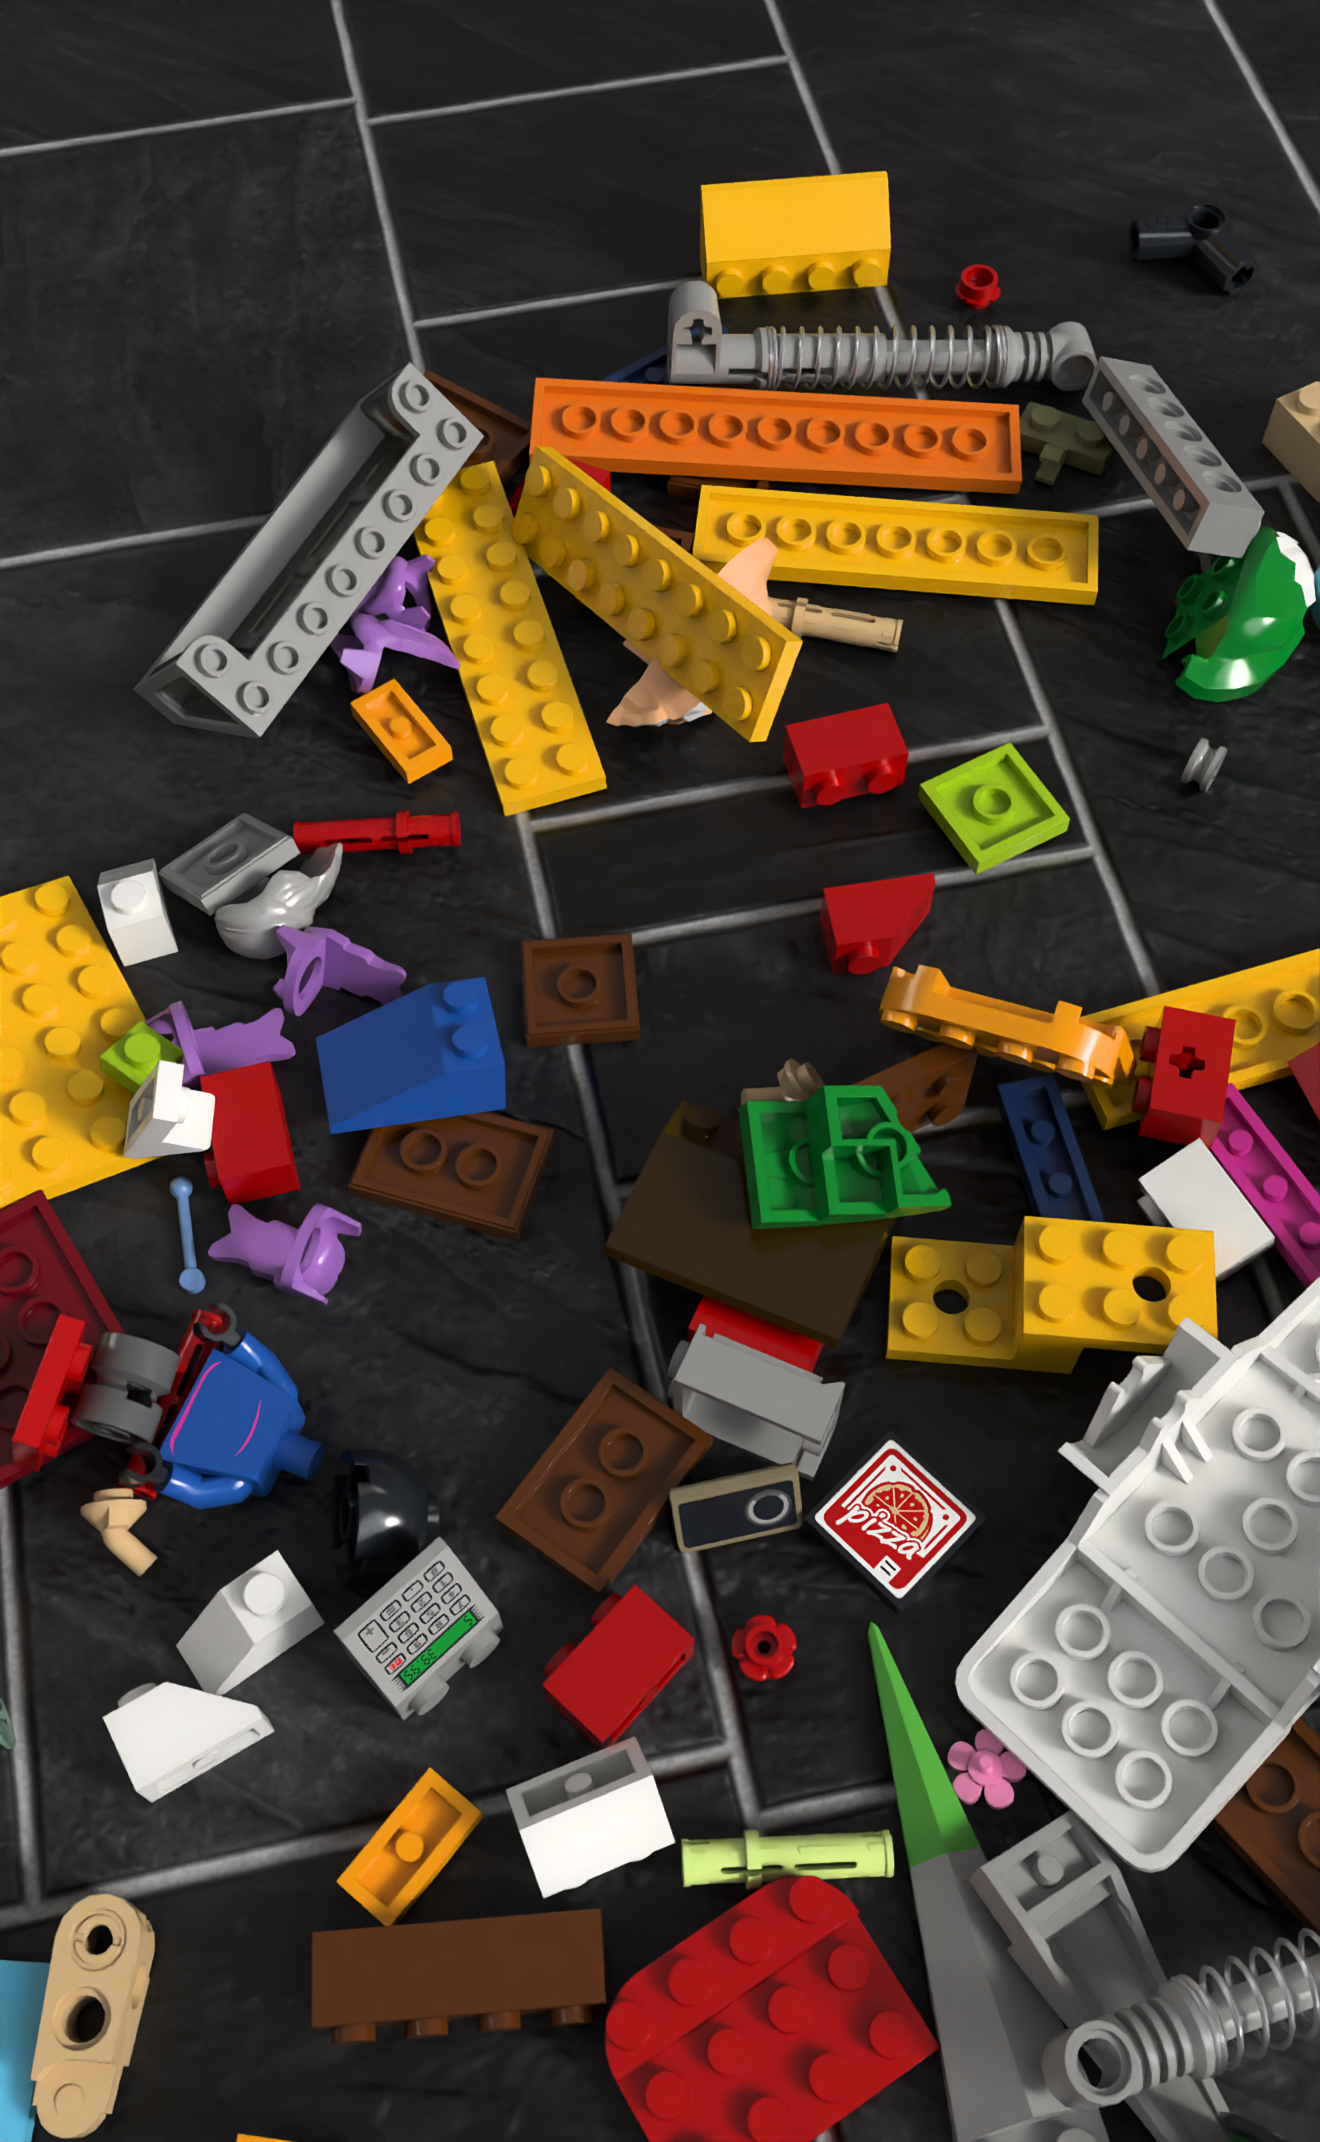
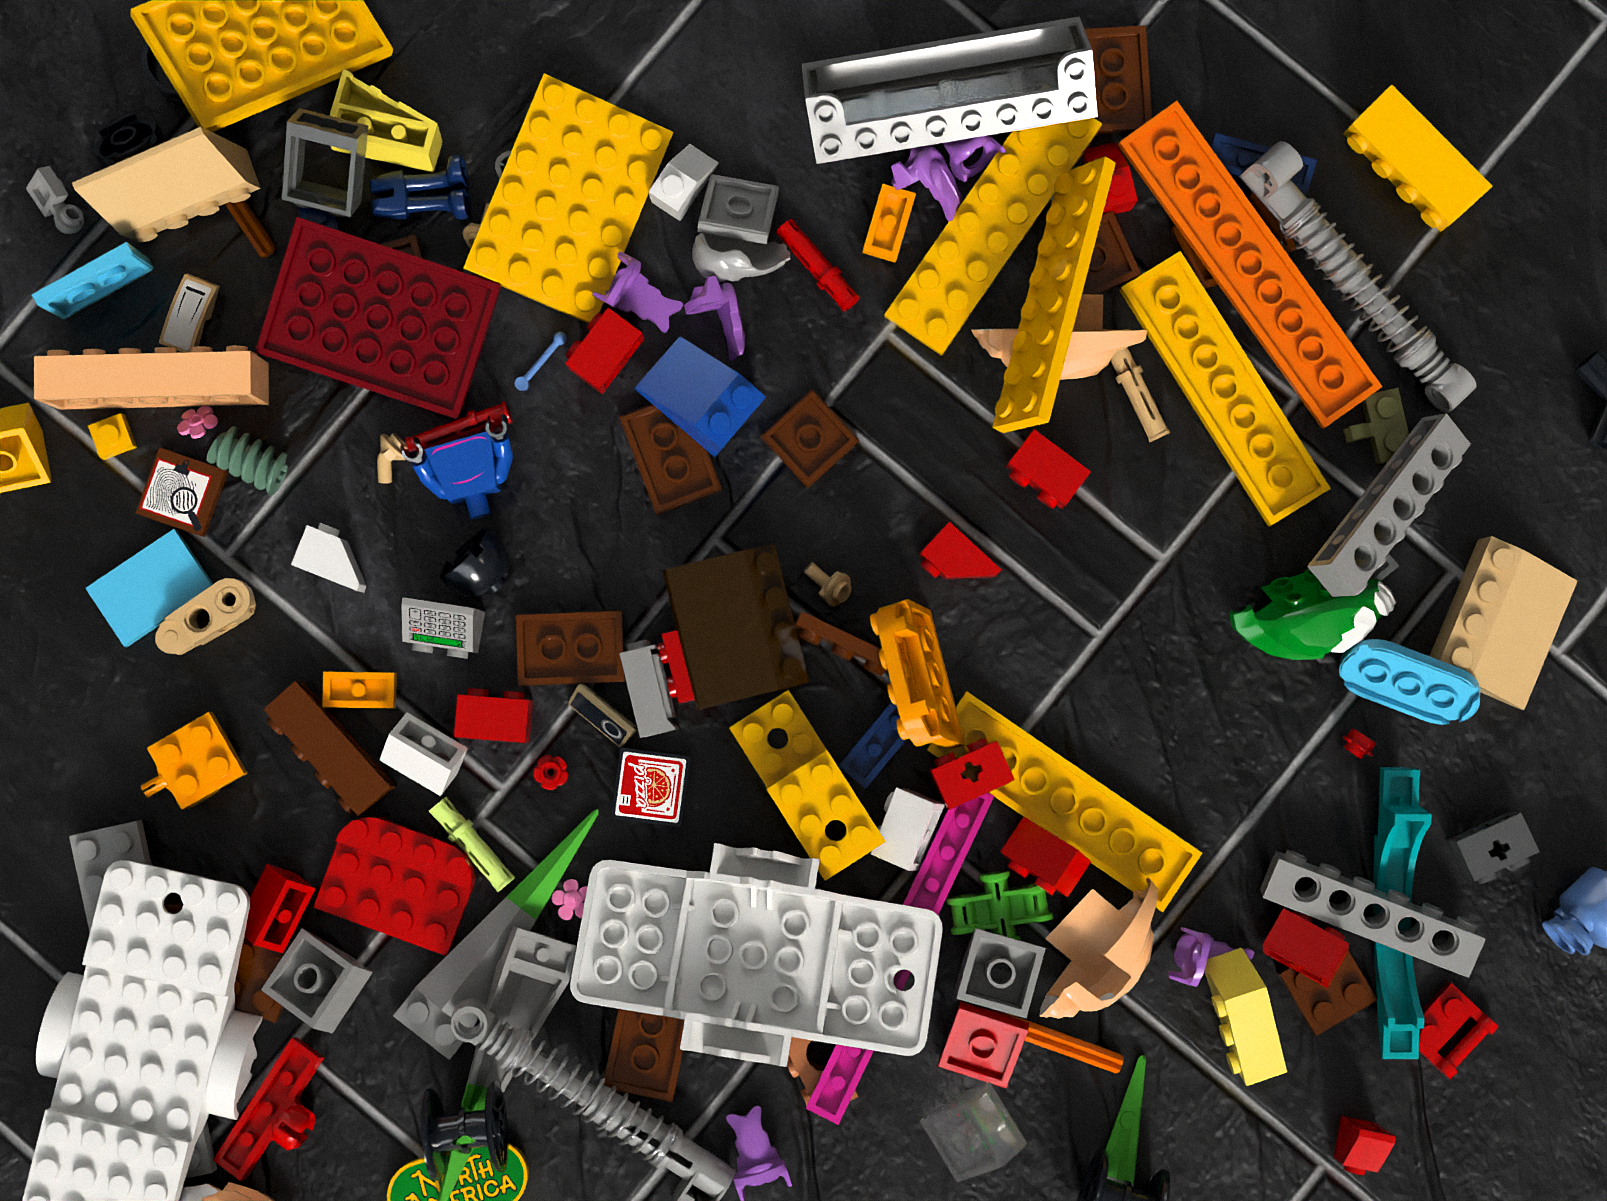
camera: 50 degrees right, 25 degrees up
(44, 1414) = (395, 393): red plate -> none
(125, 1389) = (437, 412): dark grey wheel -> none
(136, 1056) = (599, 269): lime plate -> none
(168, 1116) = (574, 314): white slope -> none
(248, 1625) = (393, 548): white slope -> none
(296, 1260) = (566, 426): medium lavender hair -> none
(833, 1160) = (778, 645): green slope -> none
(978, 286) = (1482, 288): red plate -> none
(993, 808) = (1079, 567): lime plate -> none
(1203, 765) = (1192, 658): light grey bush -> none

